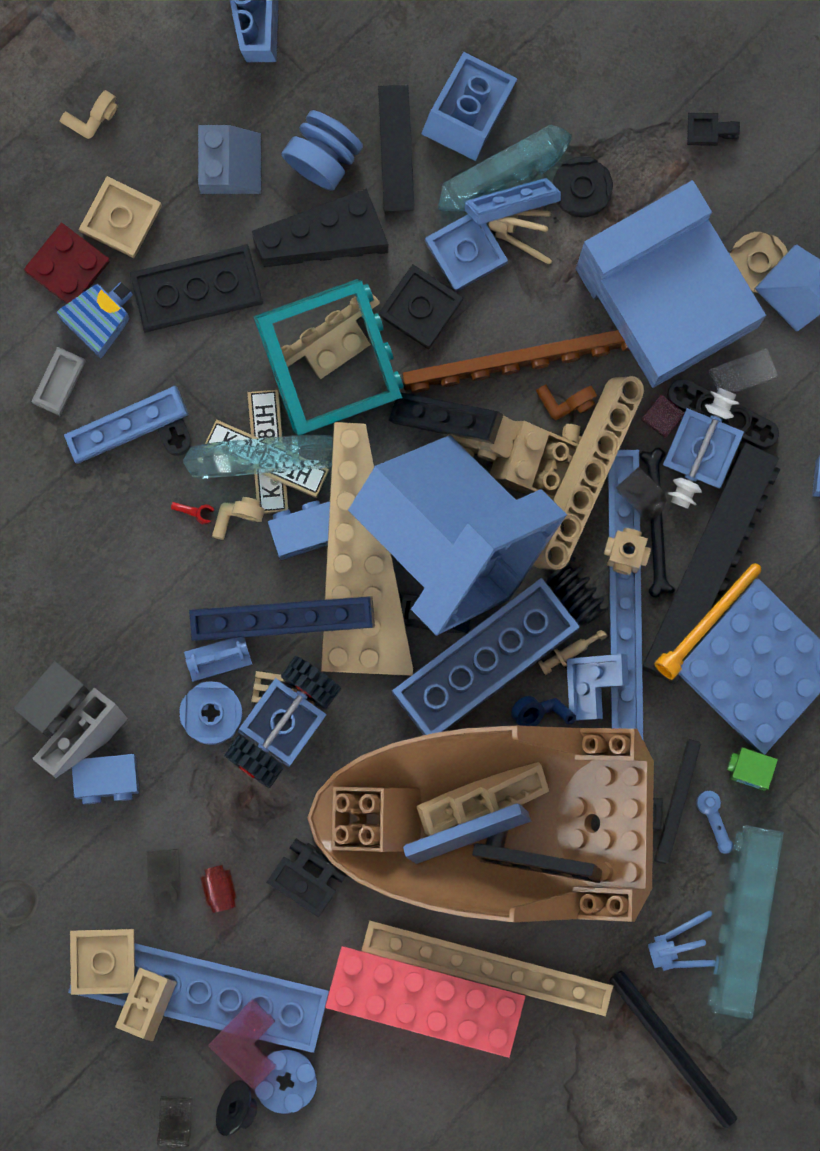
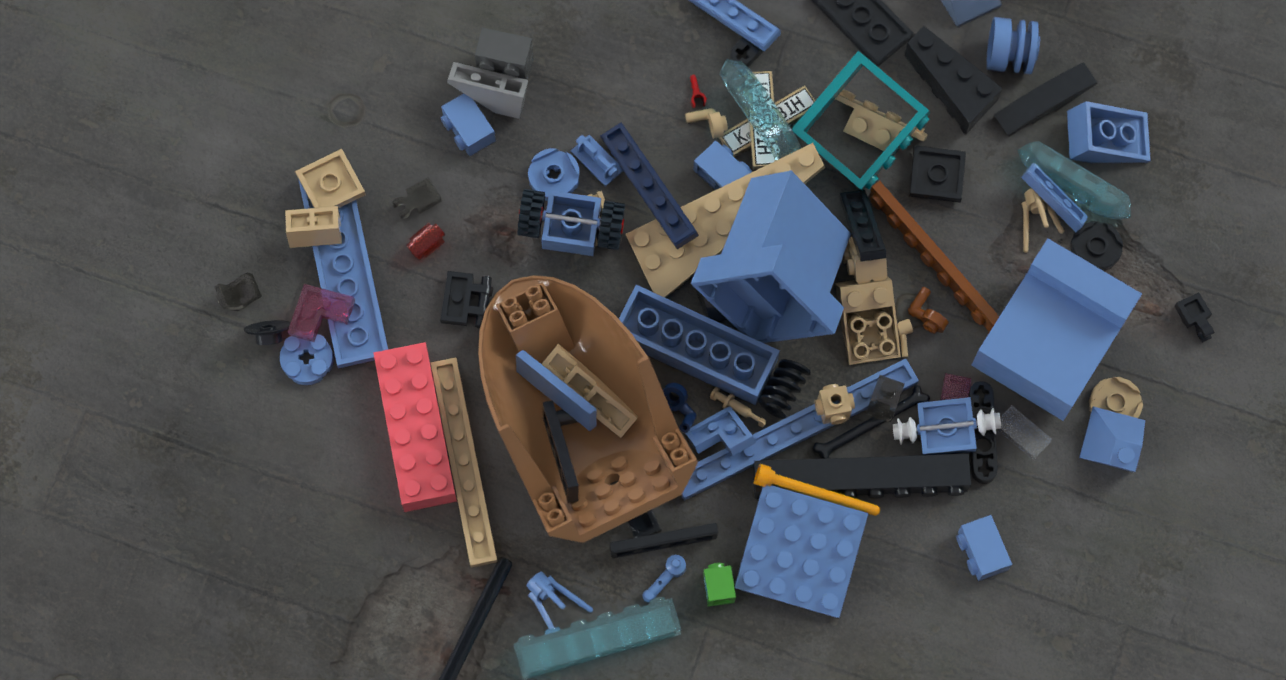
camera: 65 degrees right, 10 degrees down
(465, 252) = (997, 186): medium blue plate -> none
(598, 463) = (891, 352): tan beam -> none

